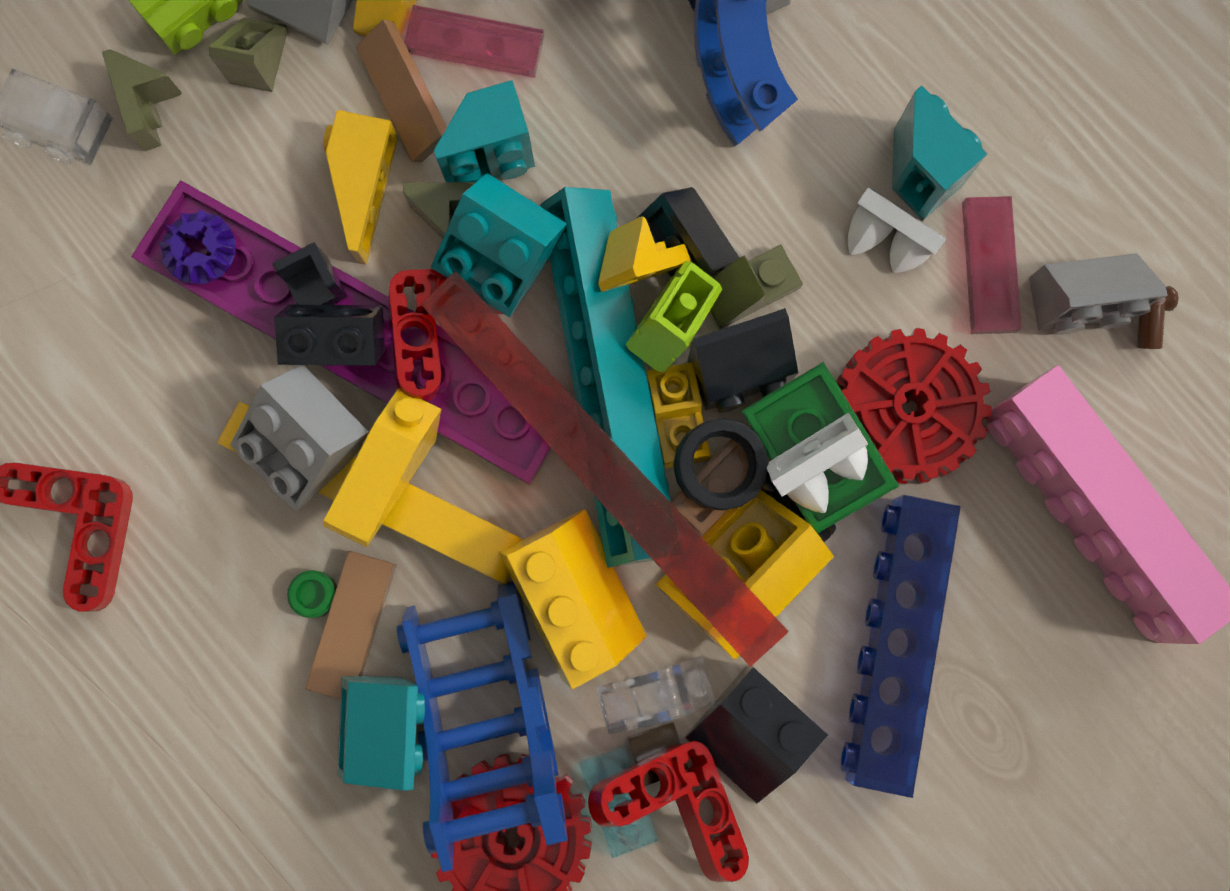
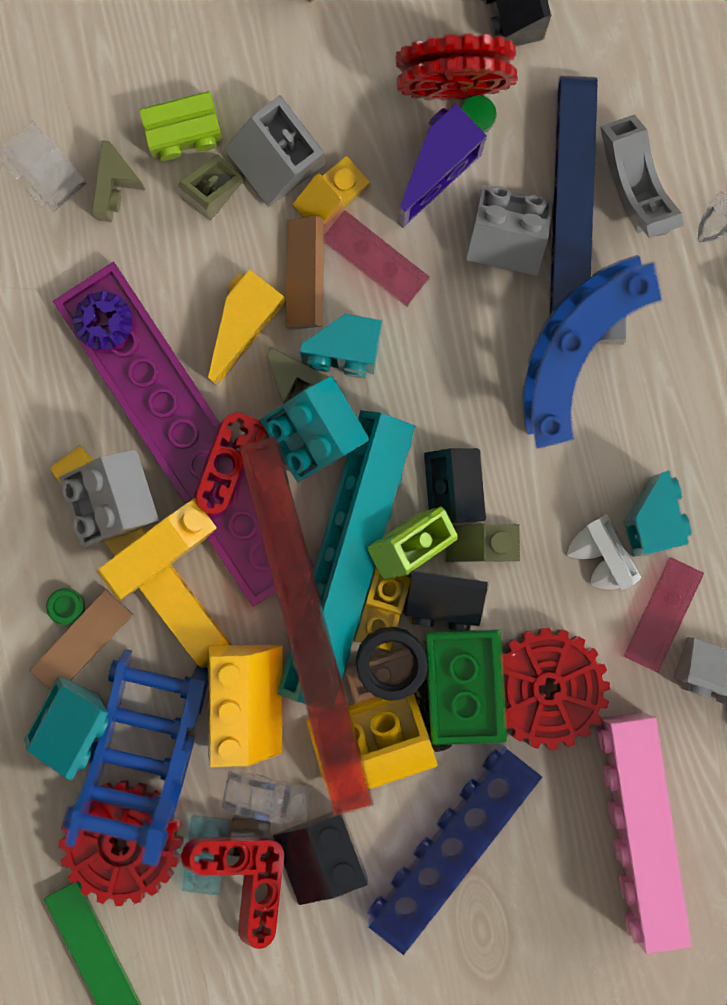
camera: 25 degrees right, 5 degrees up
(310, 277) = (171, 388): black panel -> none
(329, 334) = (165, 436): black brick -> none
(635, 256) = (406, 488): yellow slope -> none
(802, 467) = (445, 695): white tile -> none

